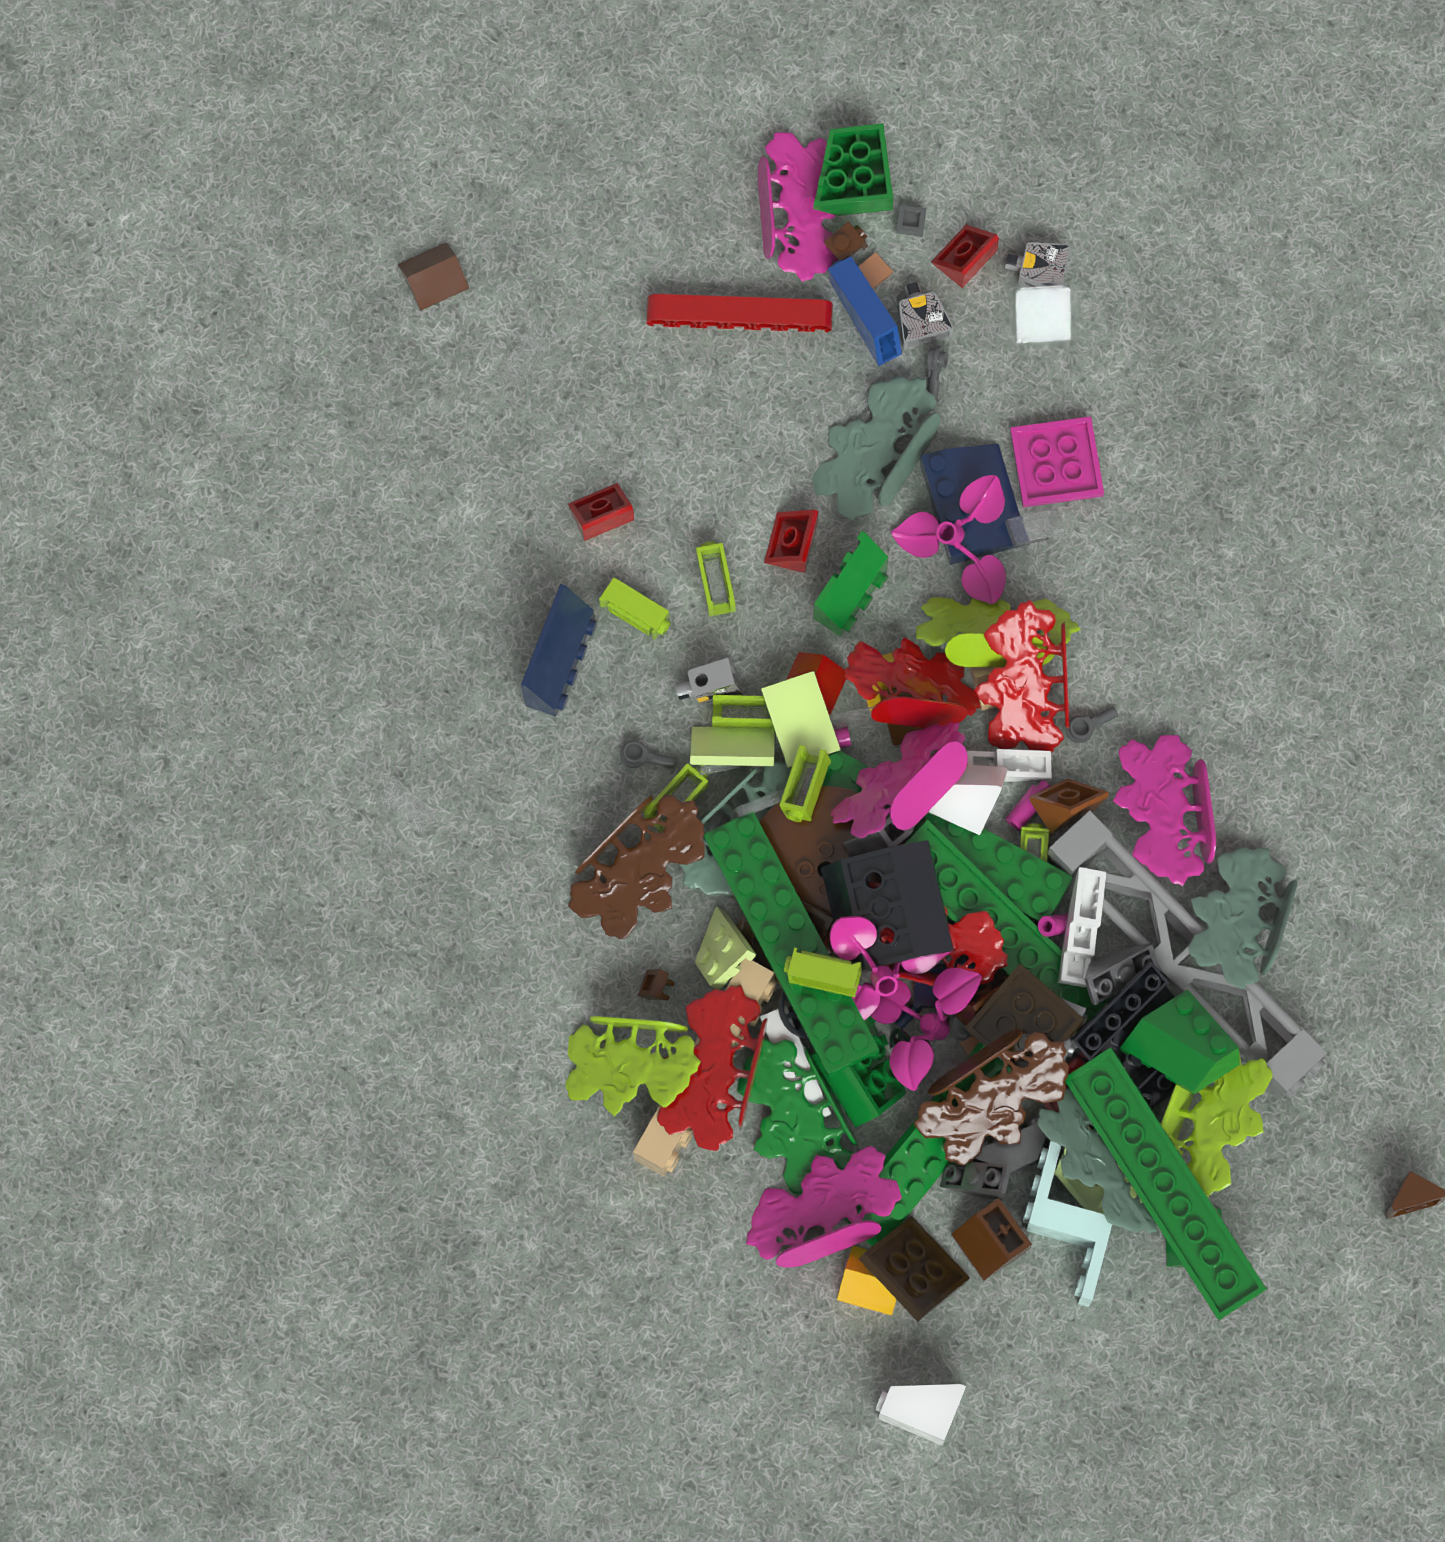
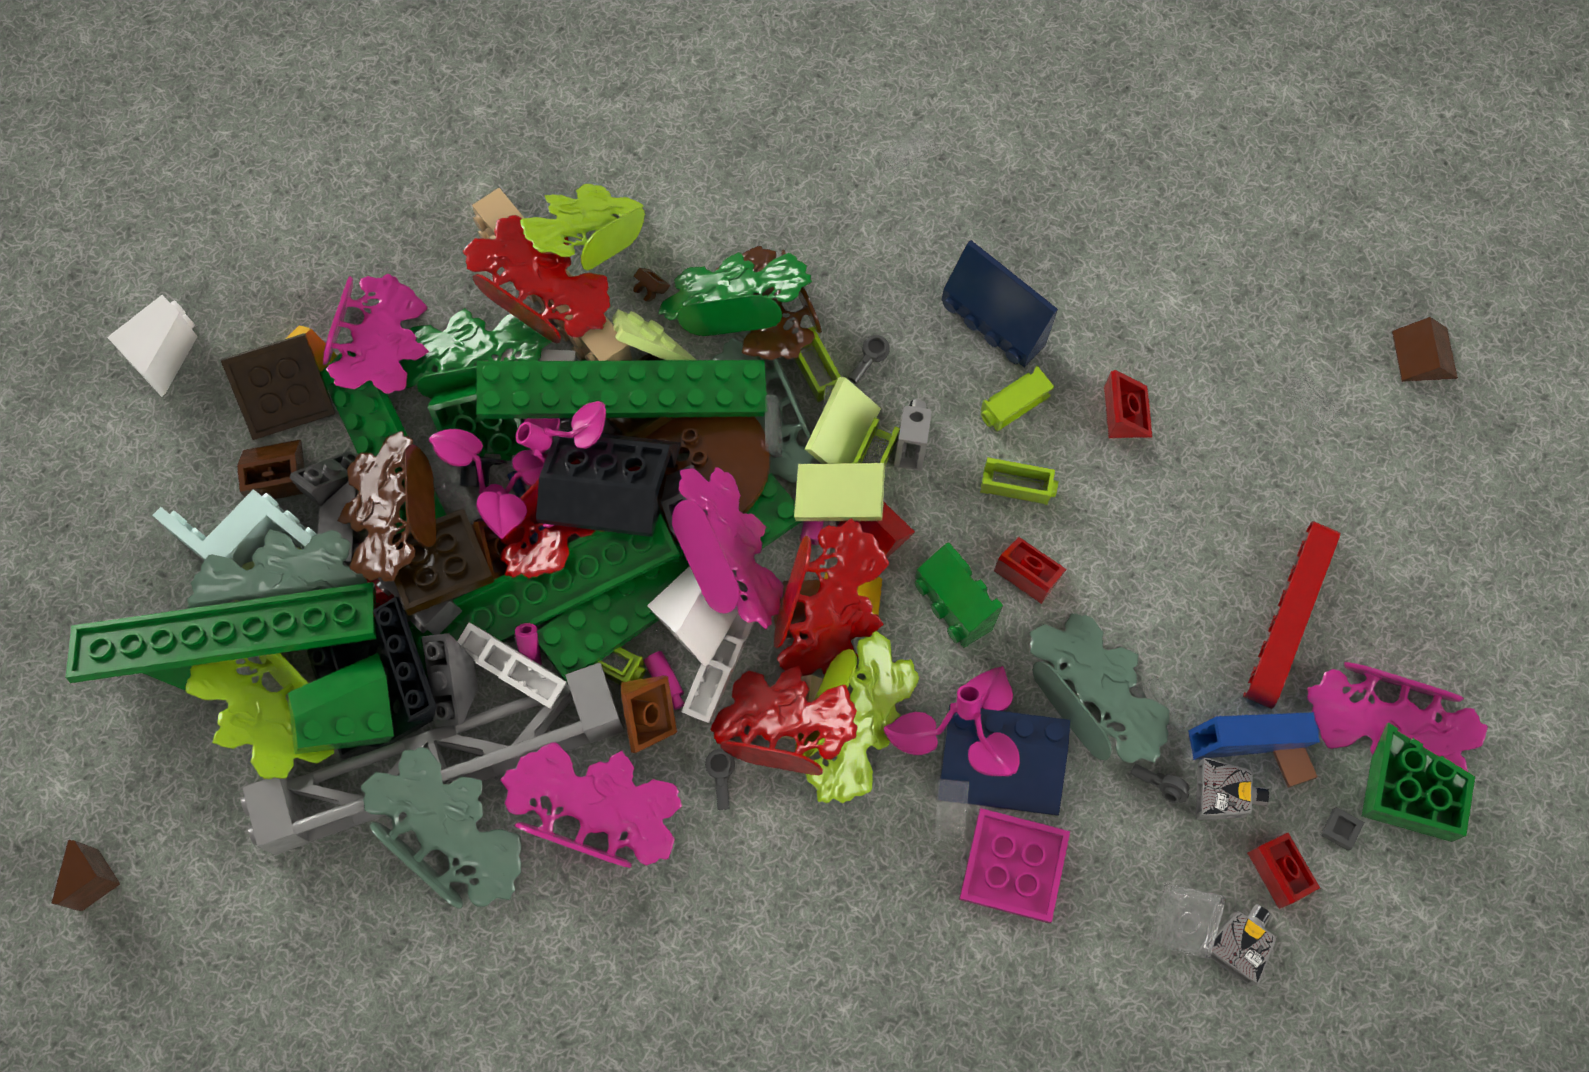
camera: 110 degrees right, 5 degrees down
(636, 902) = (728, 296): none -> green plant
(804, 784) = (770, 461): lime window -> none
(823, 972) = (569, 389): lime window -> none
(846, 241) = (1338, 750): reddish brown bracket -> none

